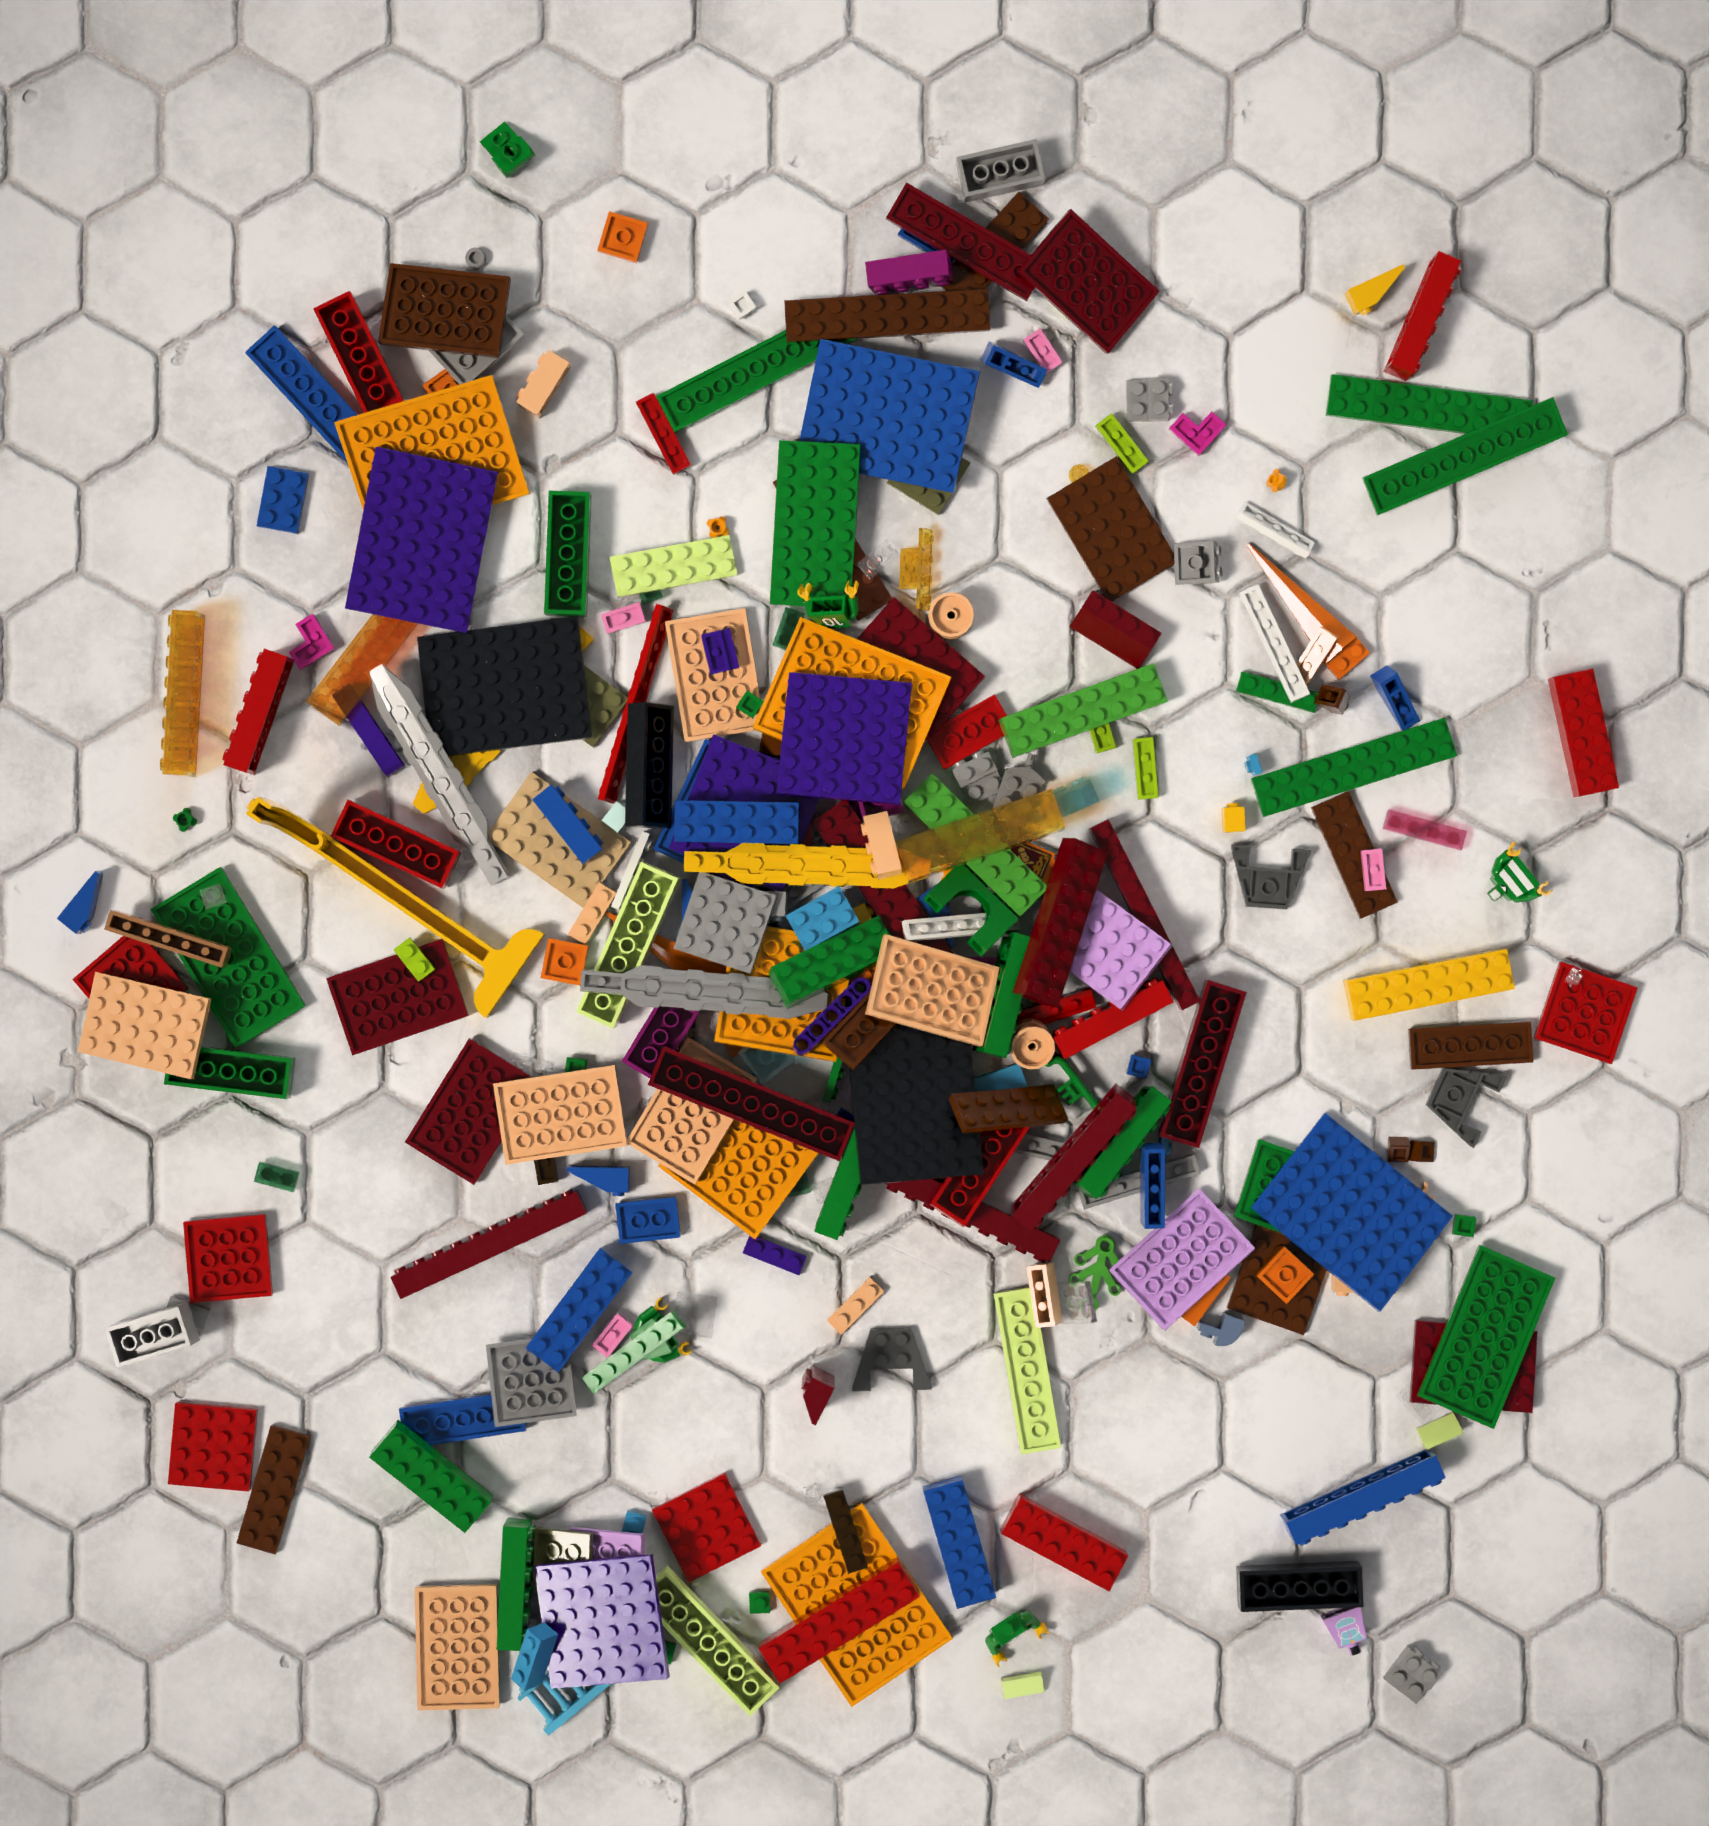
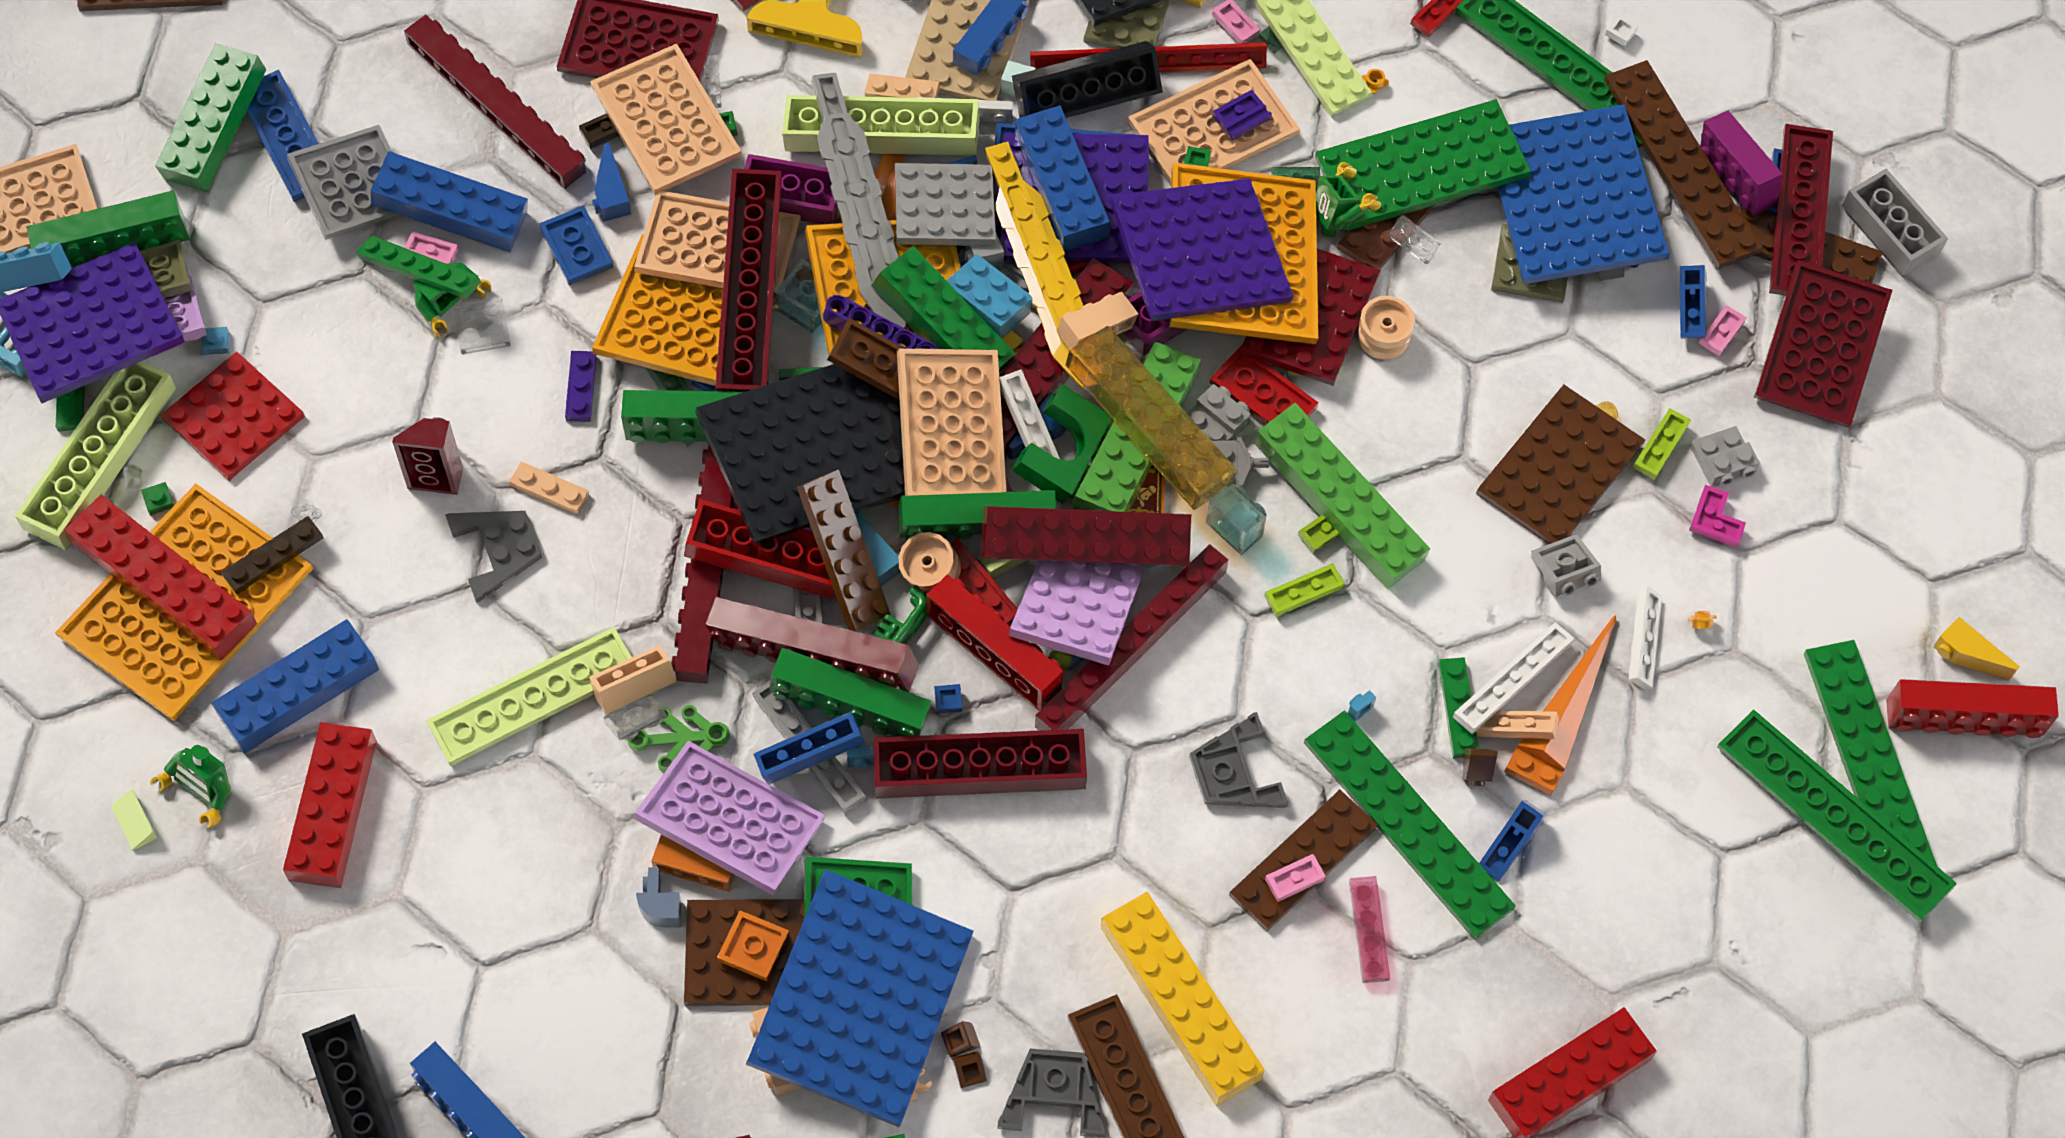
camera: 70 degrees right, 25 degrees down
(564, 961) = (847, 72): orange plate -> none
(916, 569) = (1427, 282): clear yellow bracket -> none
(1115, 629) = (1450, 503): dark red slope -> none
(1233, 818) = (1287, 704): yellow brick -> none
(1514, 879) = (1356, 1054): green torso -> none

